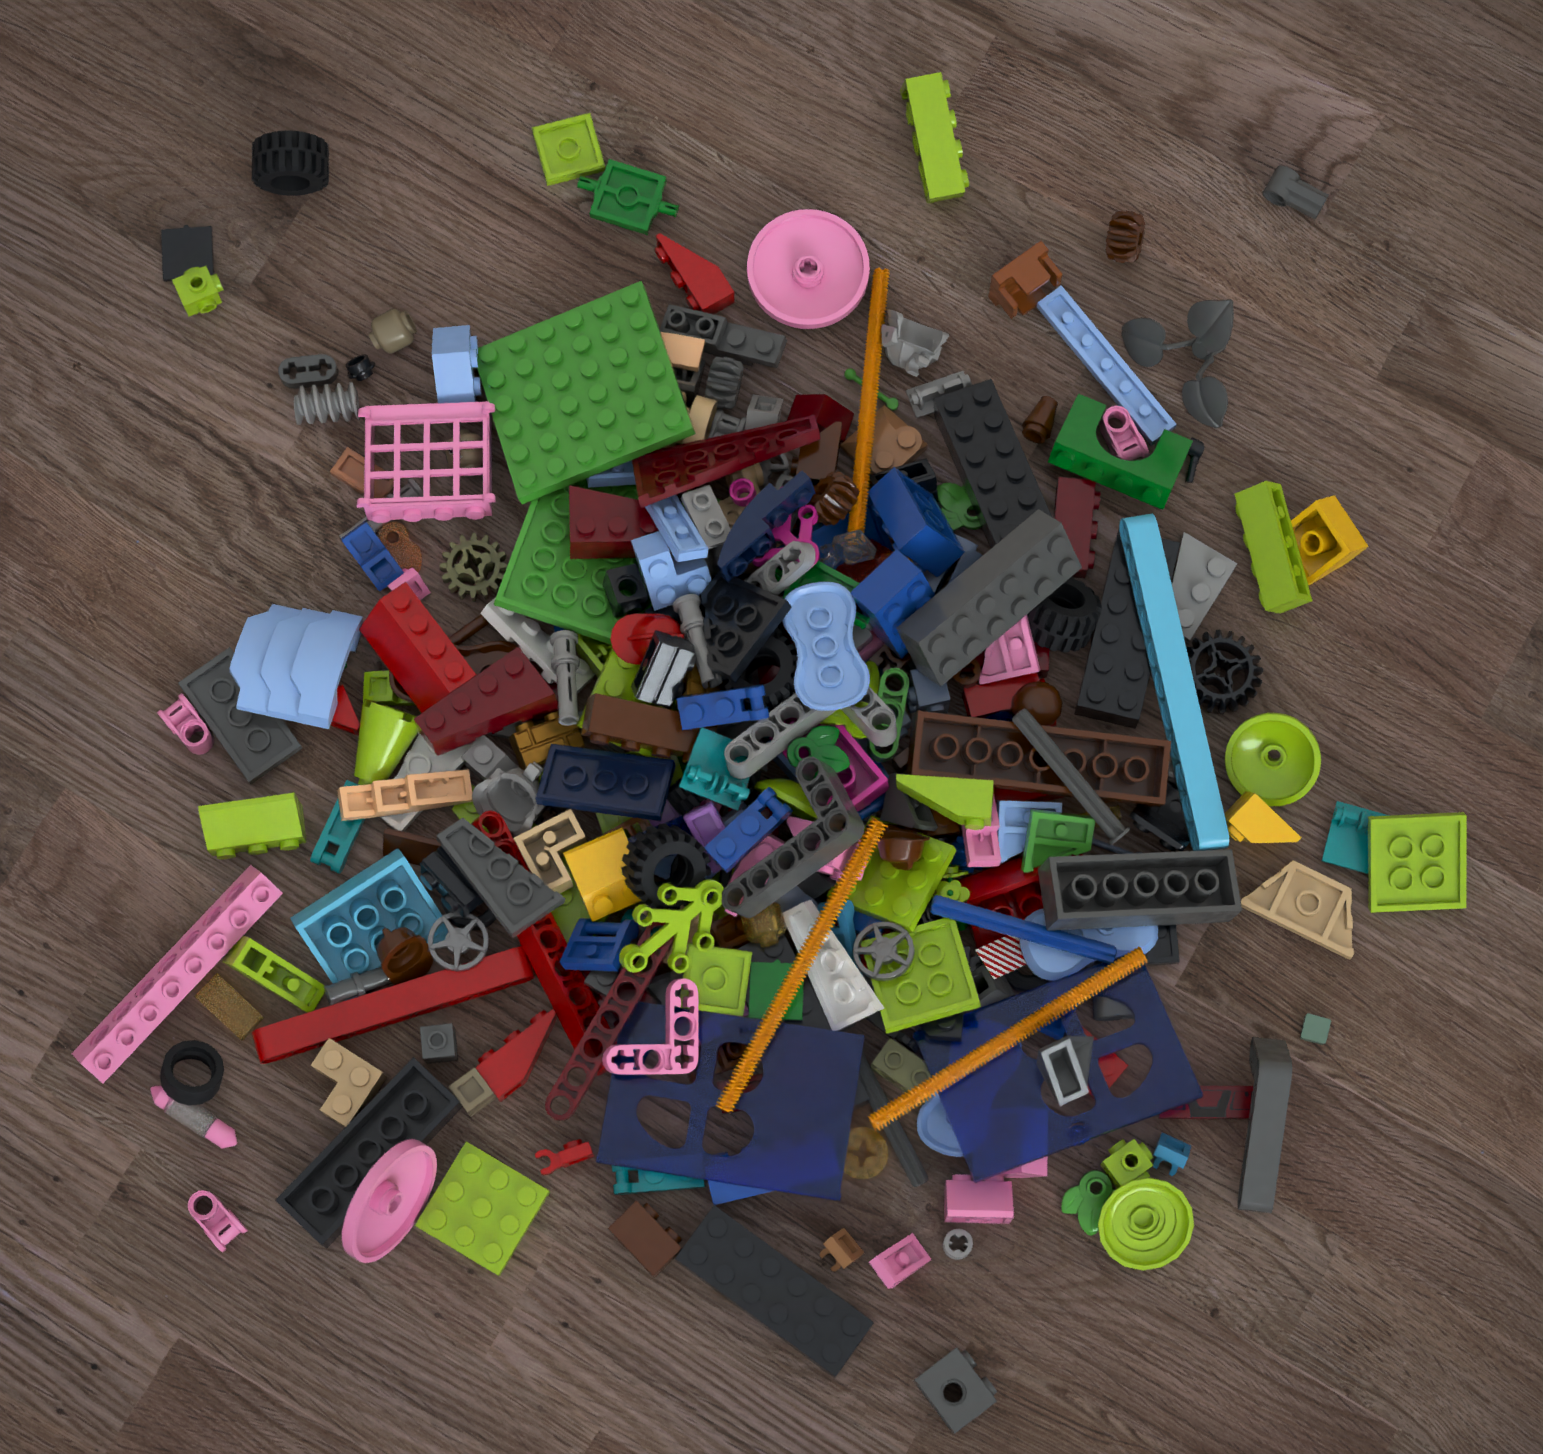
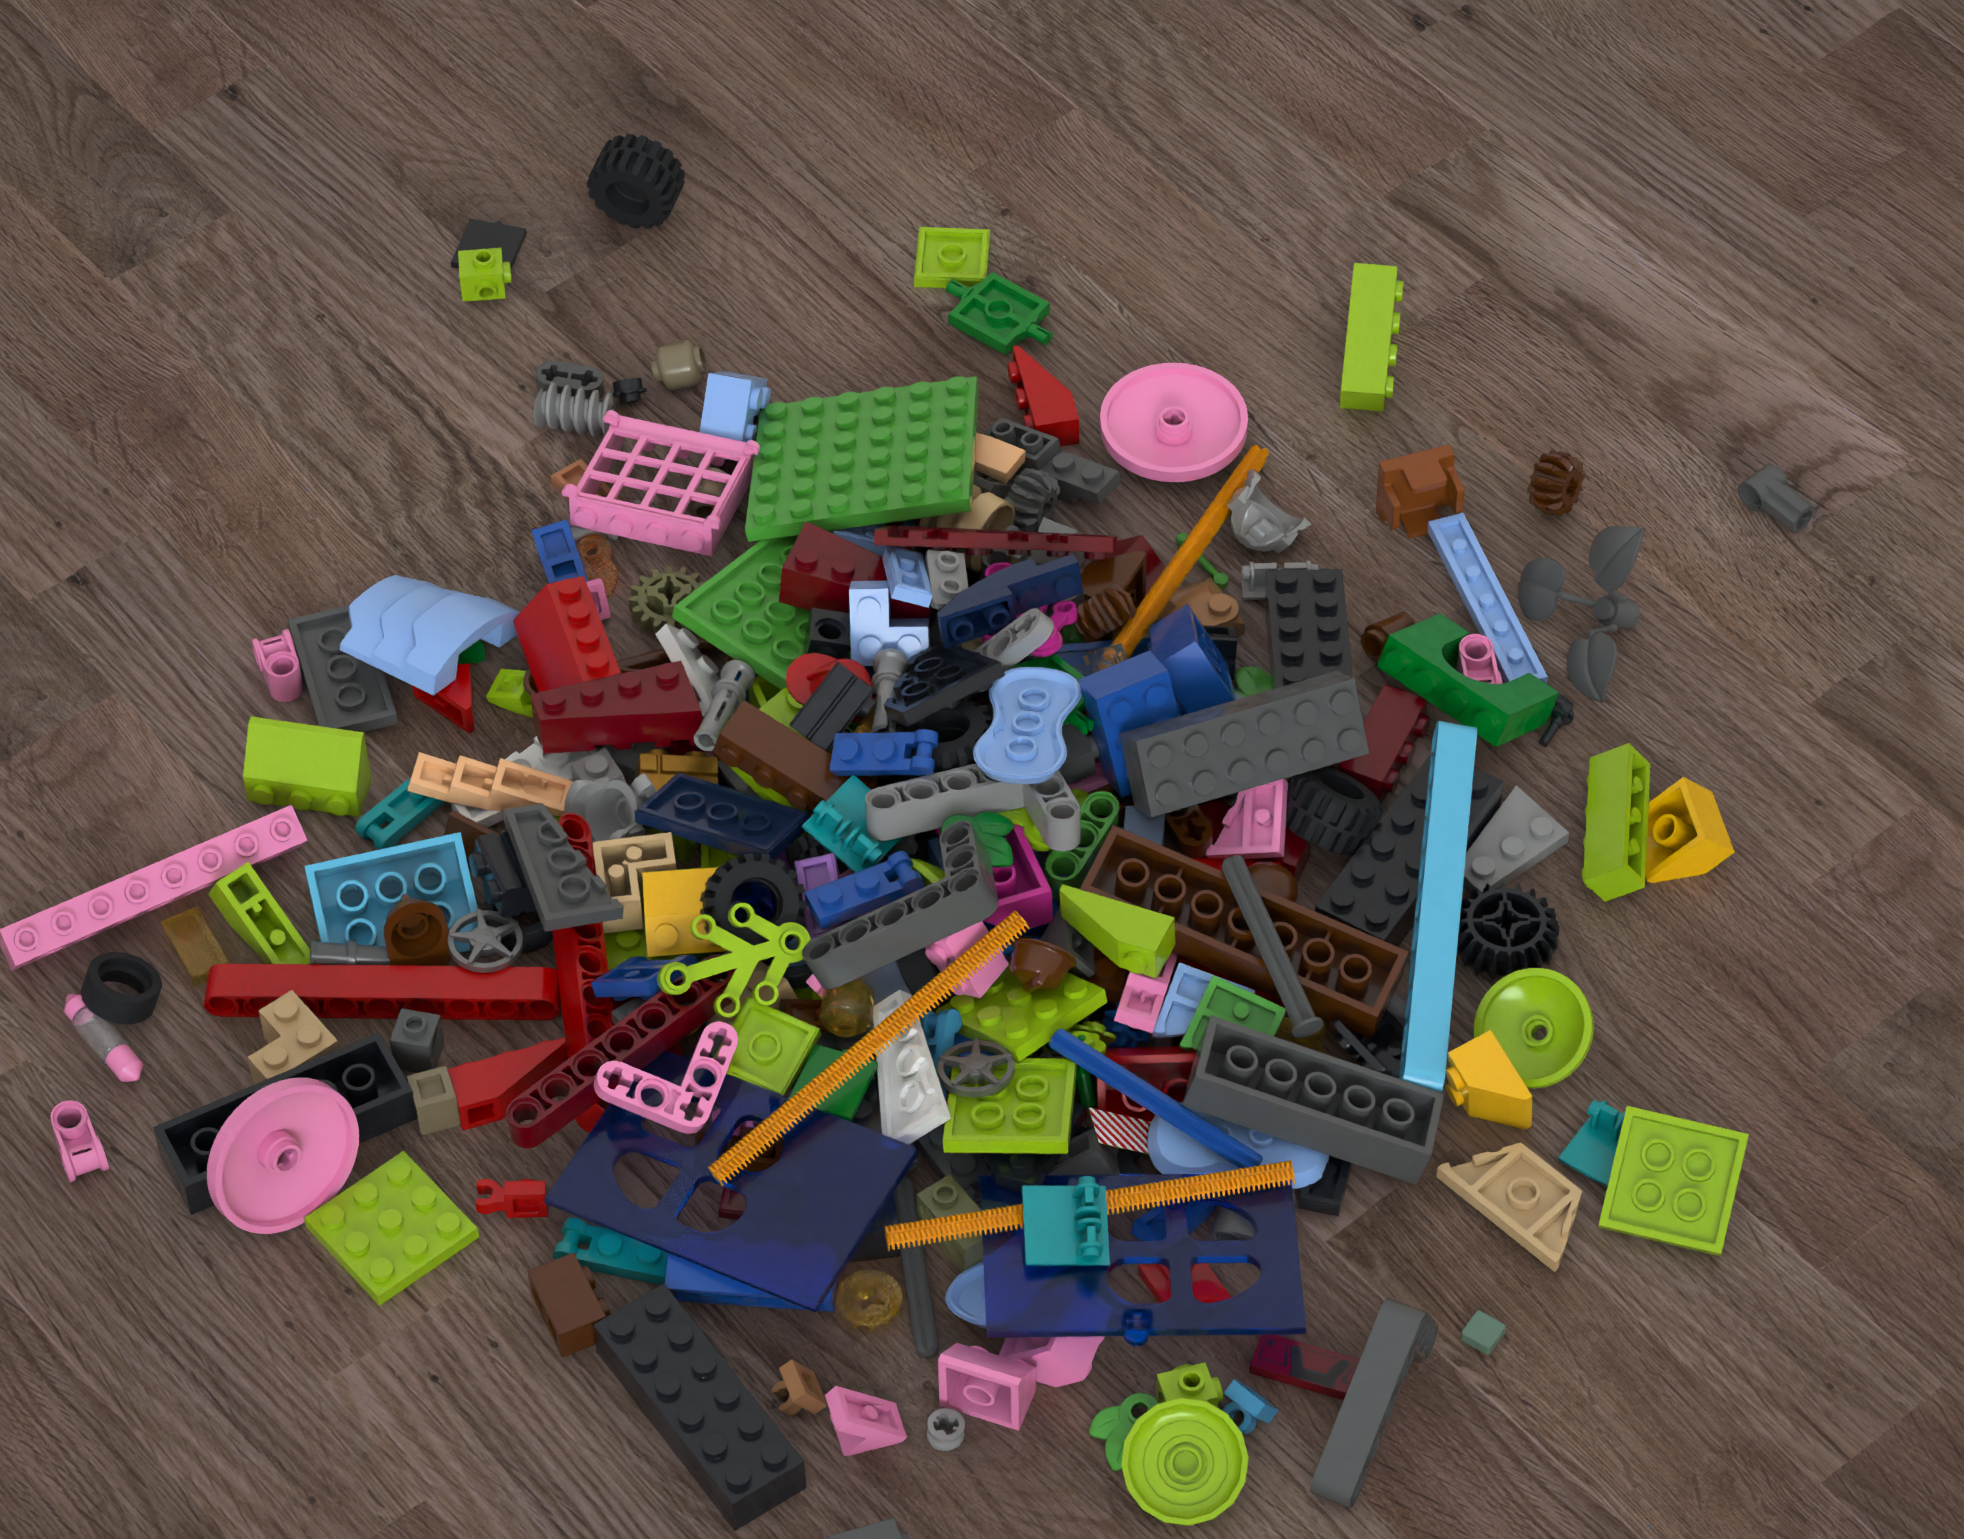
camera: 20 degrees right, 25 degrees down
(382, 741) = (493, 725): lime cone -> none
(1000, 1070) = (1066, 1224): none -> teal hinge
(1066, 1067) = (1149, 1241): dark grey slope -> none

